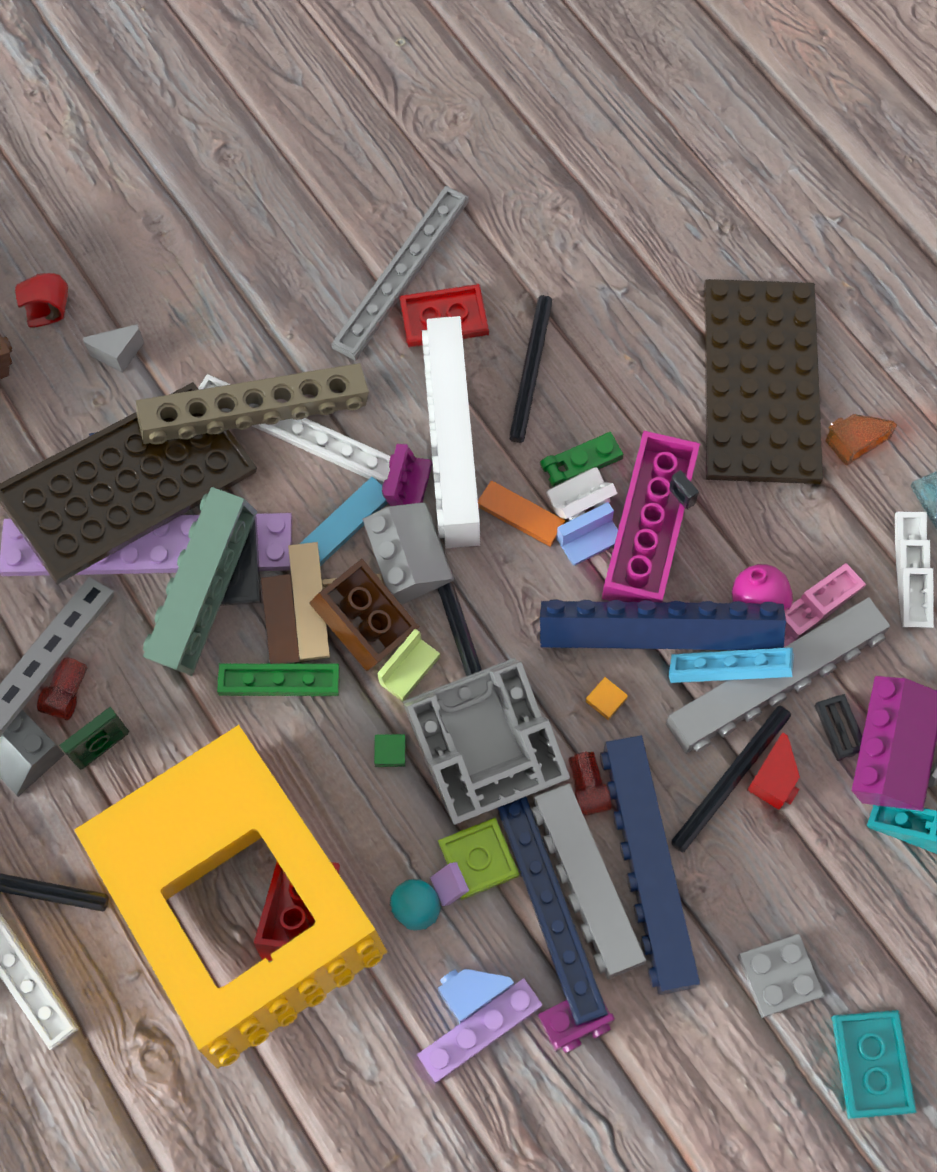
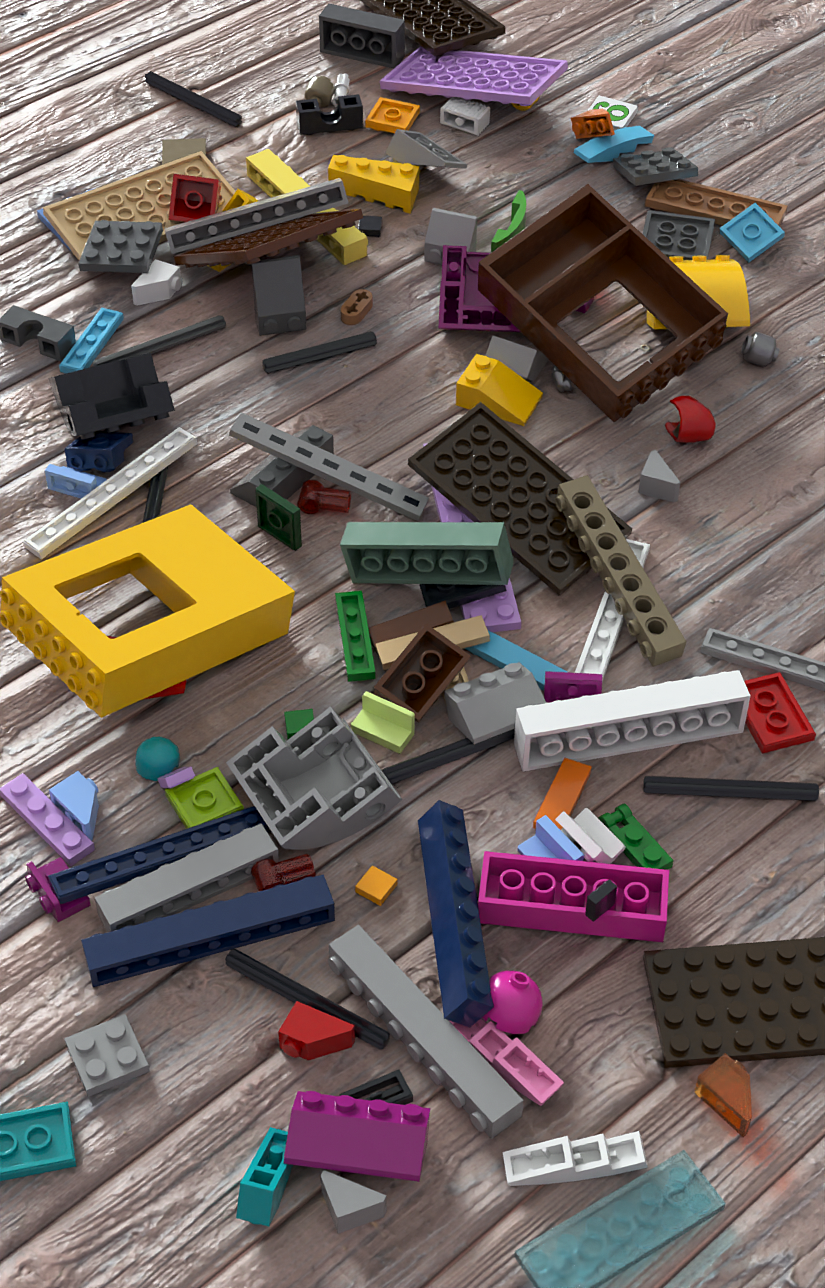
camera: 80 degrees right, 20 degrees down
(731, 665) = (421, 976): medium azure tile -> none

